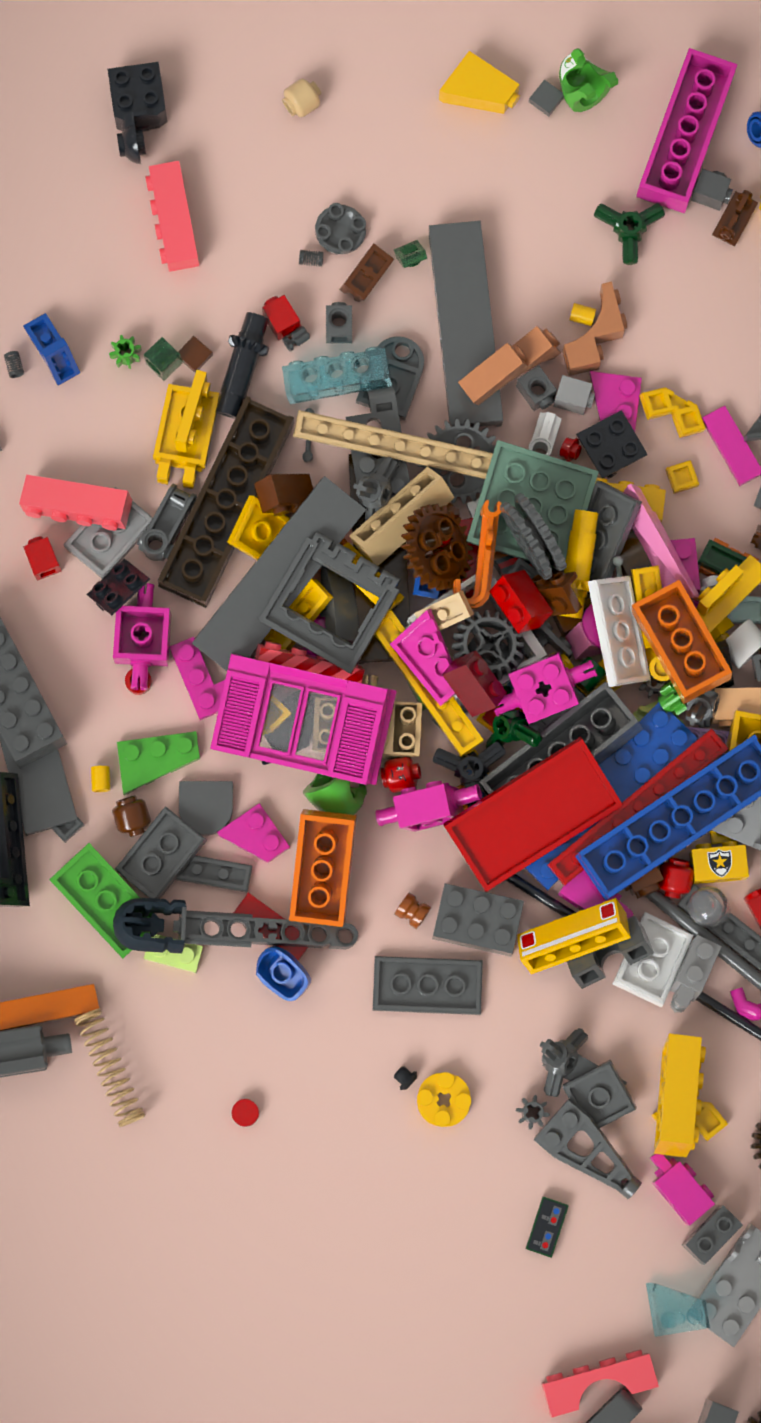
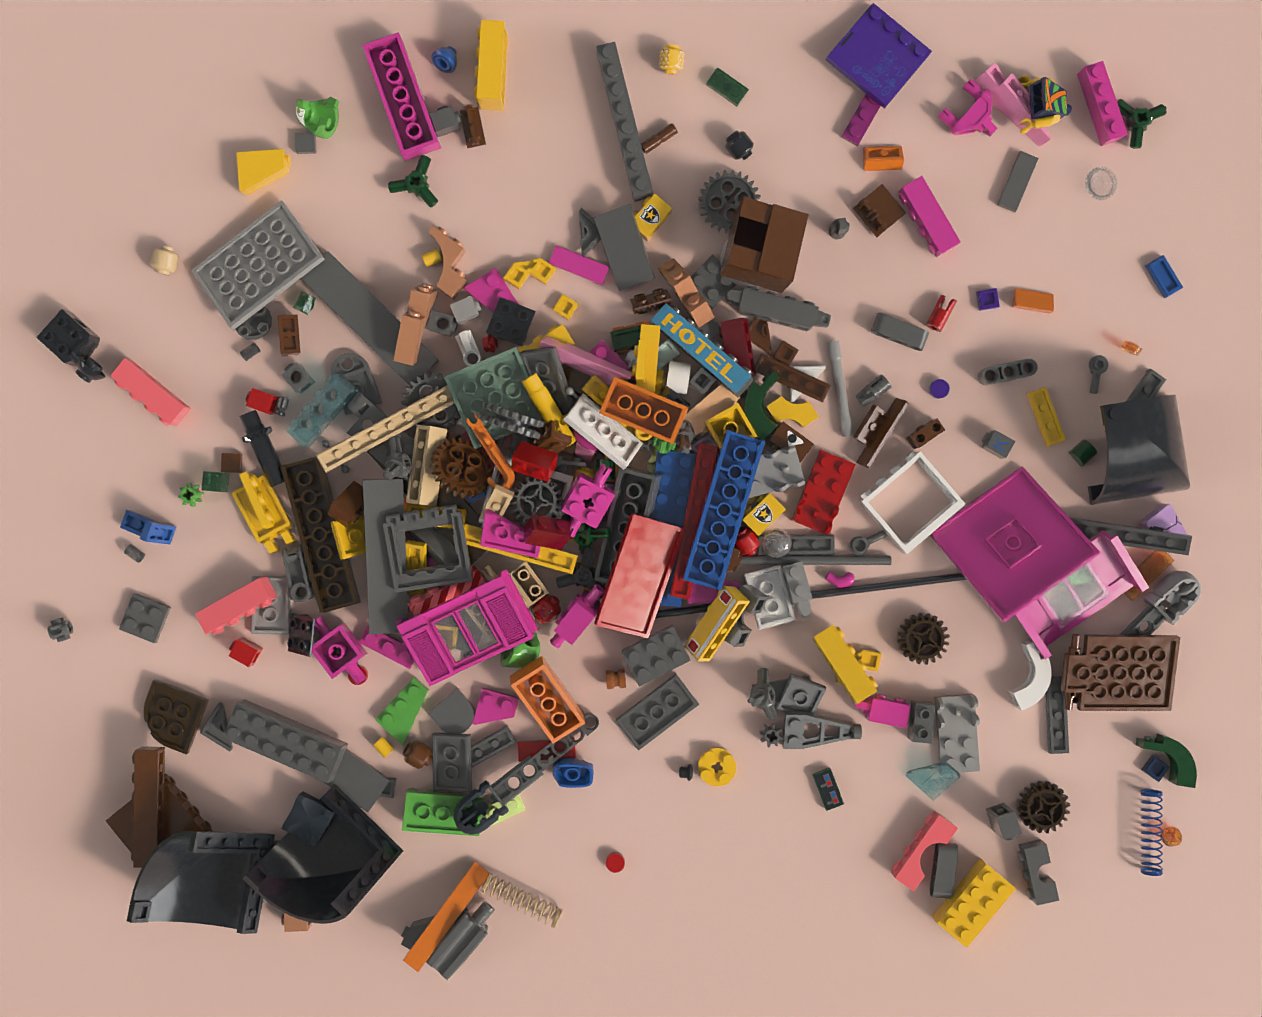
camera: 45 degrees left, 10 degrees up
(395, 177) = (257, 264): none -> light grey plate

